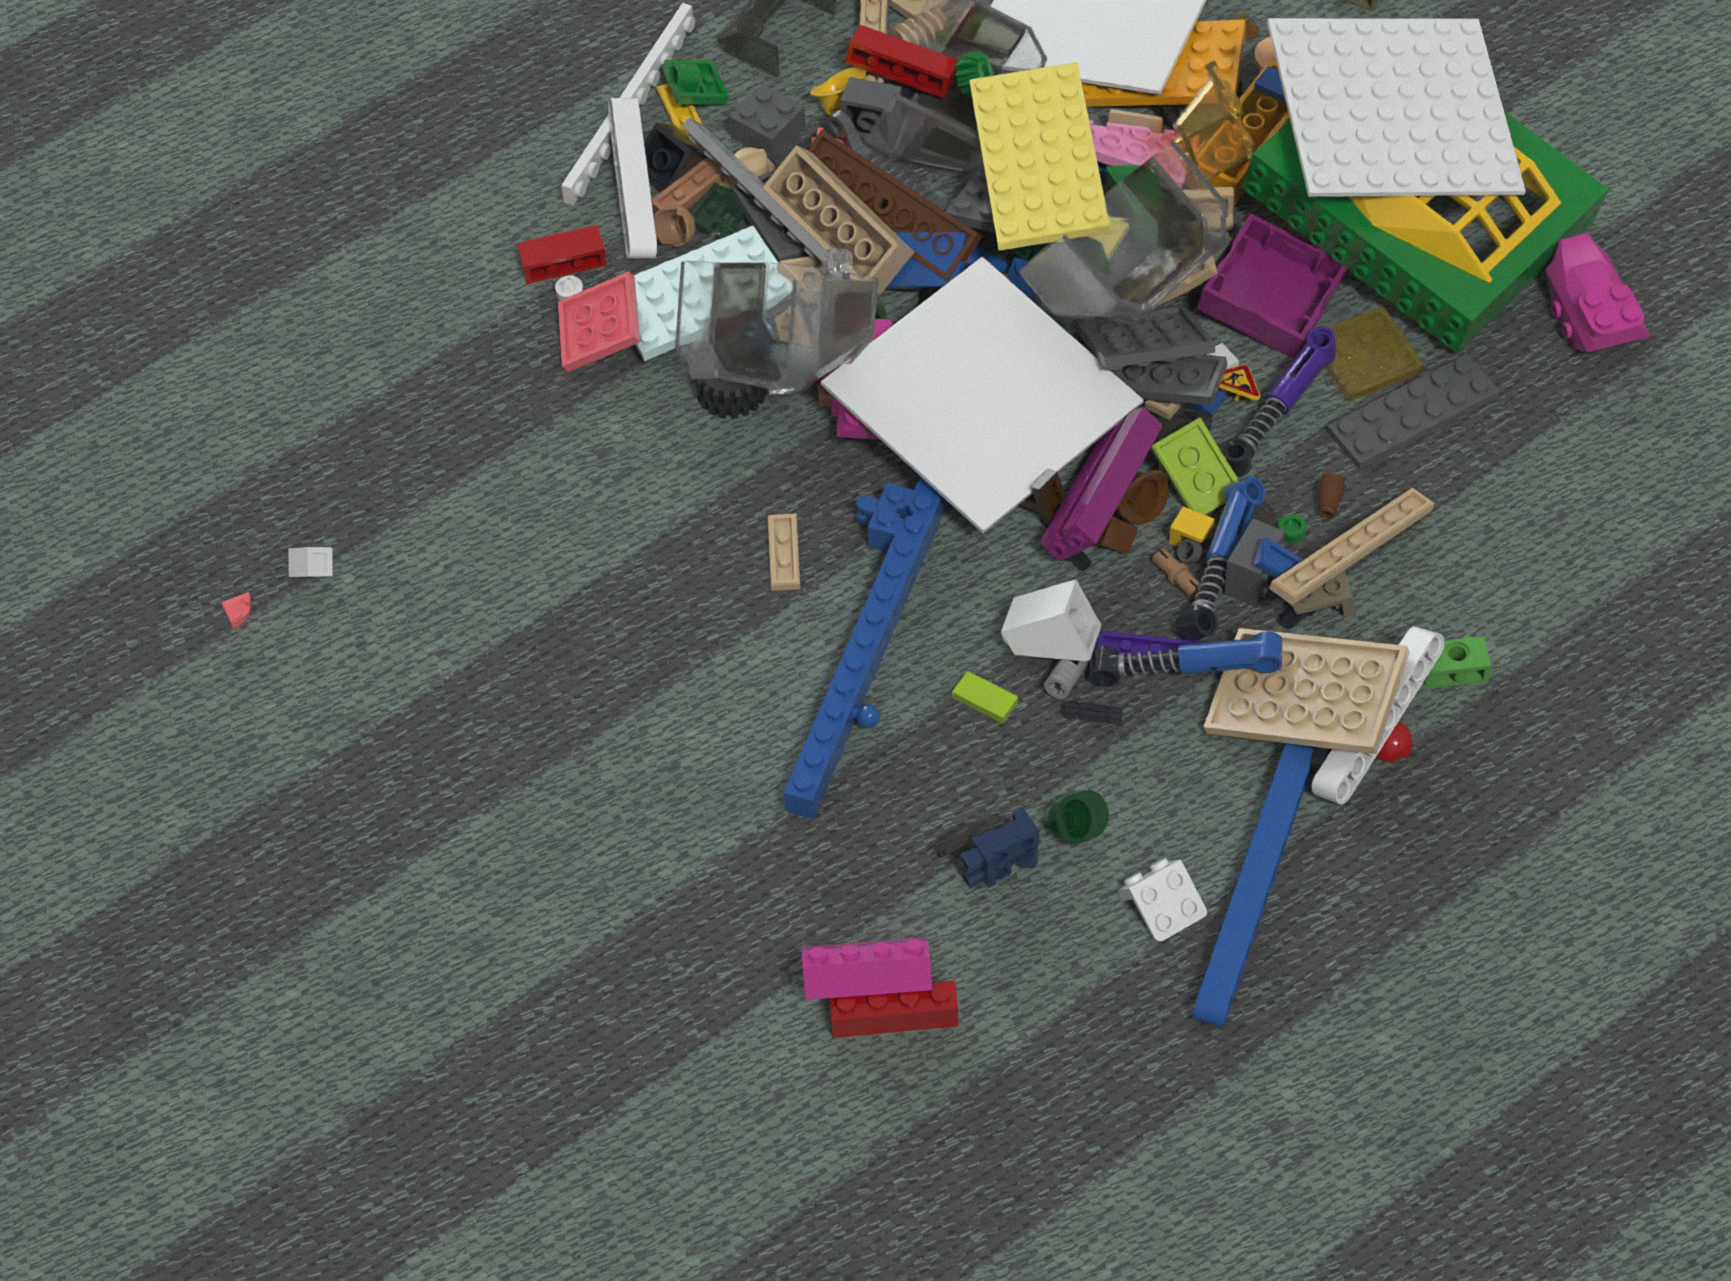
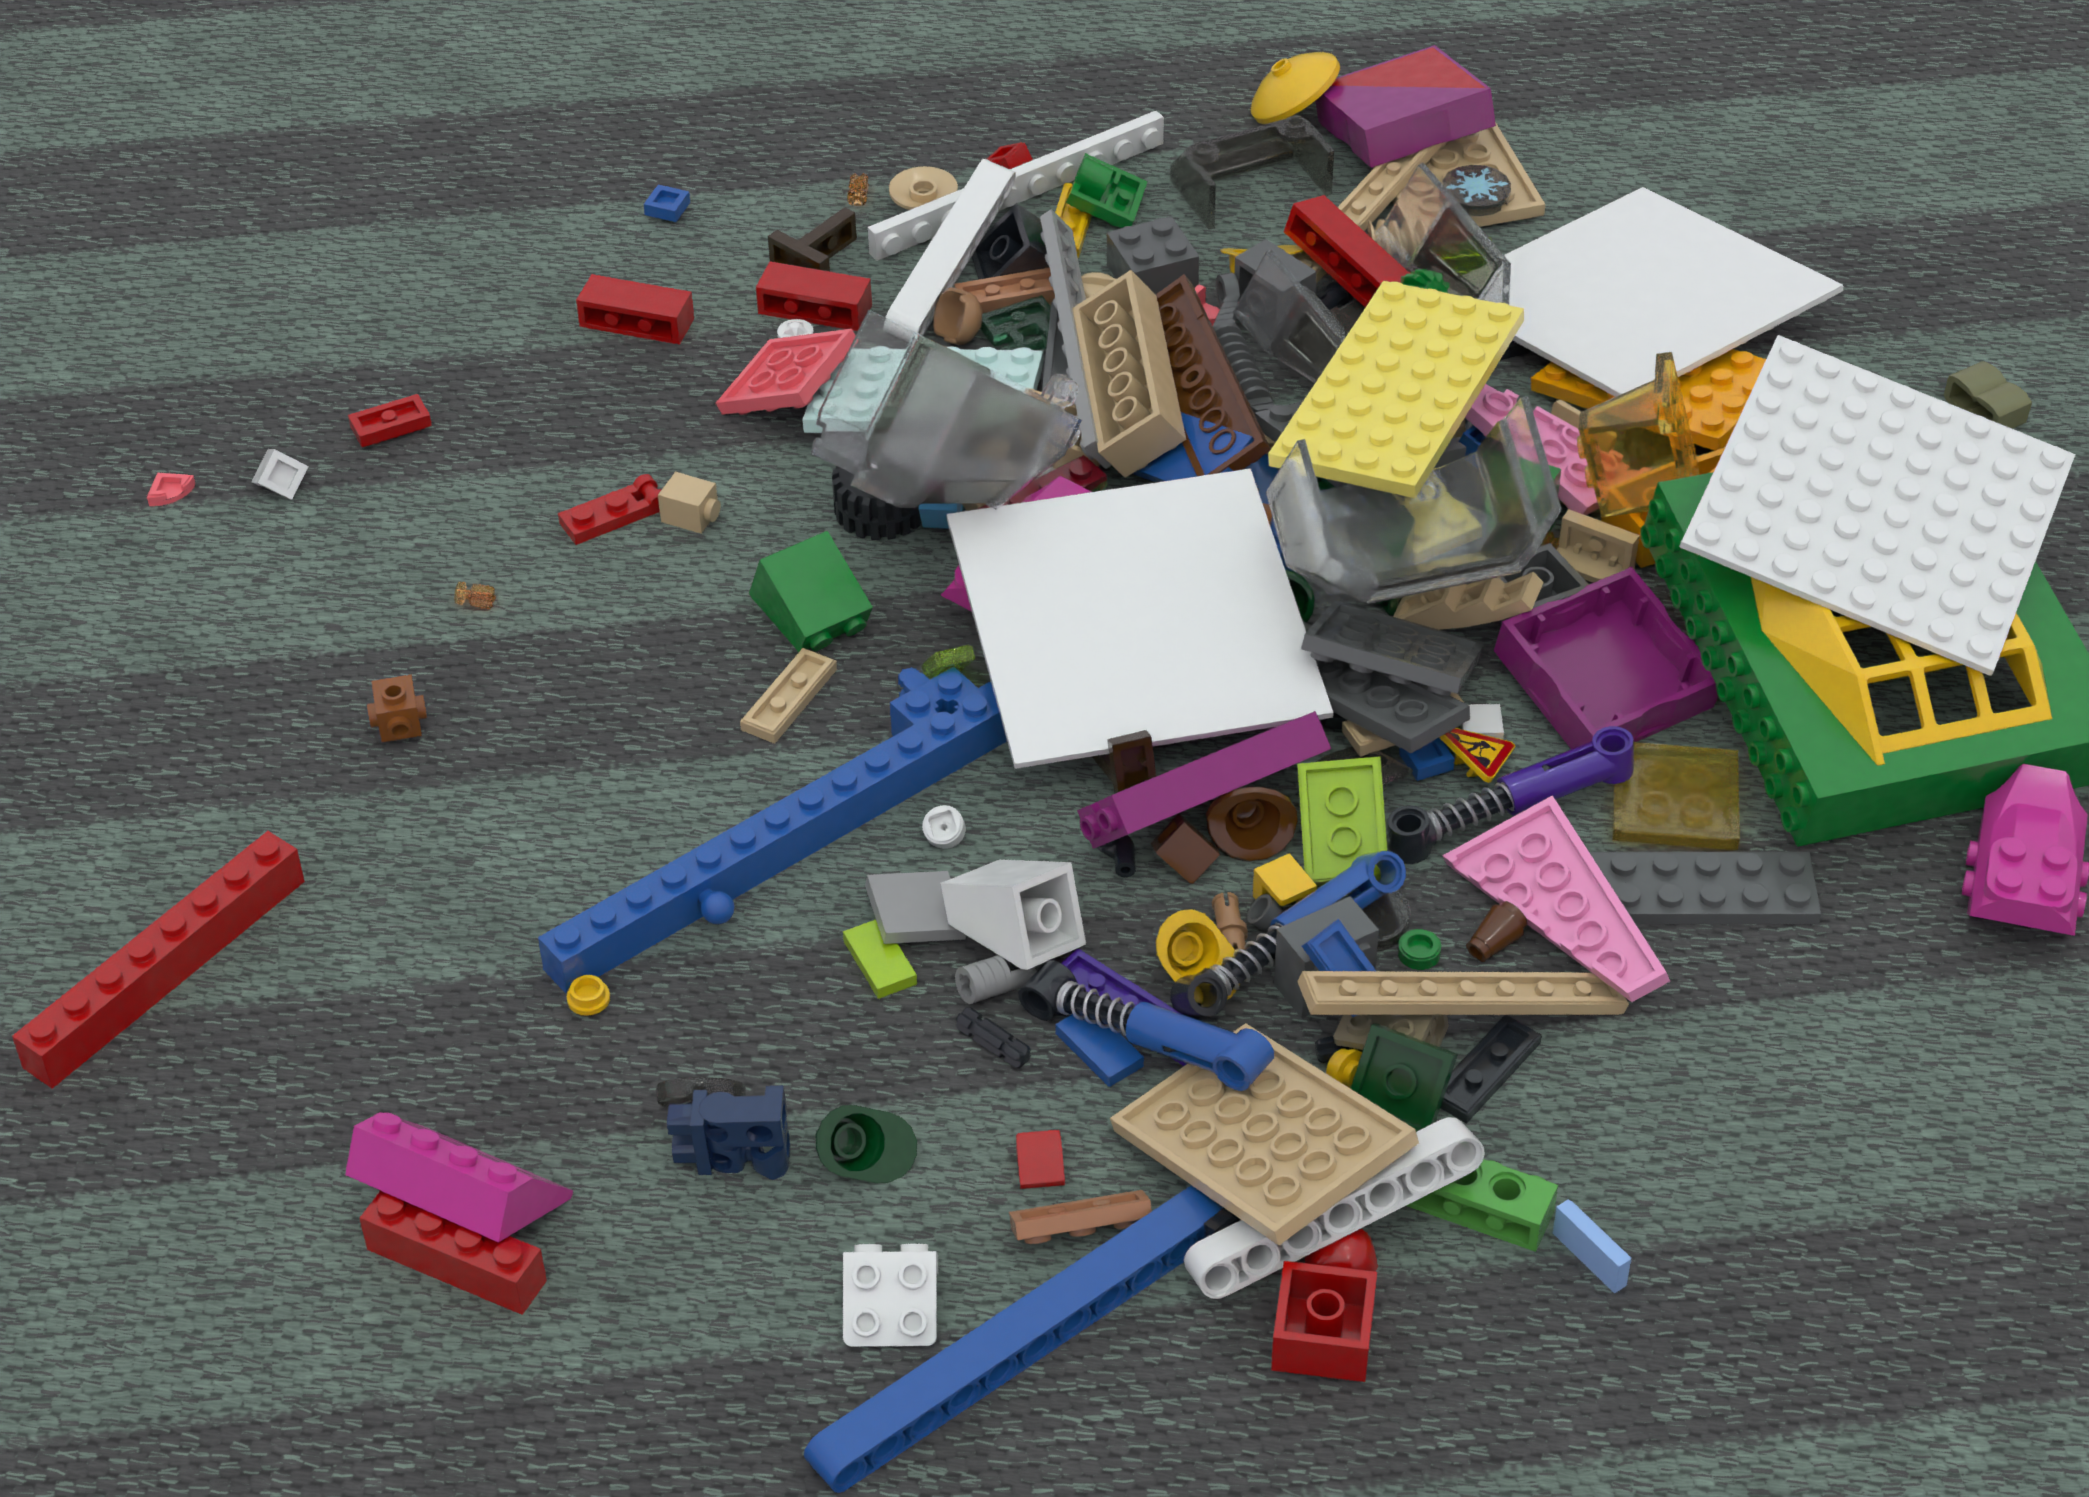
camera: 30 degrees right, 10 degrees down
(349, 485) = (389, 420): none -> red plate
(395, 228) = (667, 203): none -> blue plate
(447, 321) = (635, 309): none -> red brick
(517, 155) = (858, 190): none -> clear orange piece
(523, 583) = (479, 595): none -> clear orange piece
(528, 223) = (816, 246): none -> dark brown bracket
(548, 688) = (396, 708): none -> dark orange brick
(548, 930) = (158, 959): none -> red brick
(558, 478) = (611, 510): none -> red plate
(566, 135) = (920, 186): none -> tan dish
(601, 84) = (1011, 155): none -> red slope
(609, 448) = (688, 502): none -> tan brick
(749, 476) = (810, 593): none -> green slope
(831, 813) = (588, 995): none -> yellow plate
(876, 480) = (943, 660): none -> clear neon green tile
(956, 592) = (944, 827): none -> white tile
(981, 654) = (910, 907): none -> light grey tile
(1160, 687) = (1100, 1049): none -> blue tile
(1171, 596) = (1189, 944): none -> yellow piece
(1181, 773) = (1040, 1159): none -> red slope
(1232, 794) = (1079, 1216): none -> nougat plate
(1311, 624) = (1343, 1065): none -> yellow plate
(1332, 441) = (1563, 894): none -> bright pink wing
(1353, 614) = (1404, 1075): none -> dark green tile
(1383, 585) = (1488, 1067): none -> black tile
(1416, 784) = (1324, 1321): none -> red brick
(1521, 662) = (1591, 1245): none -> light blue tile

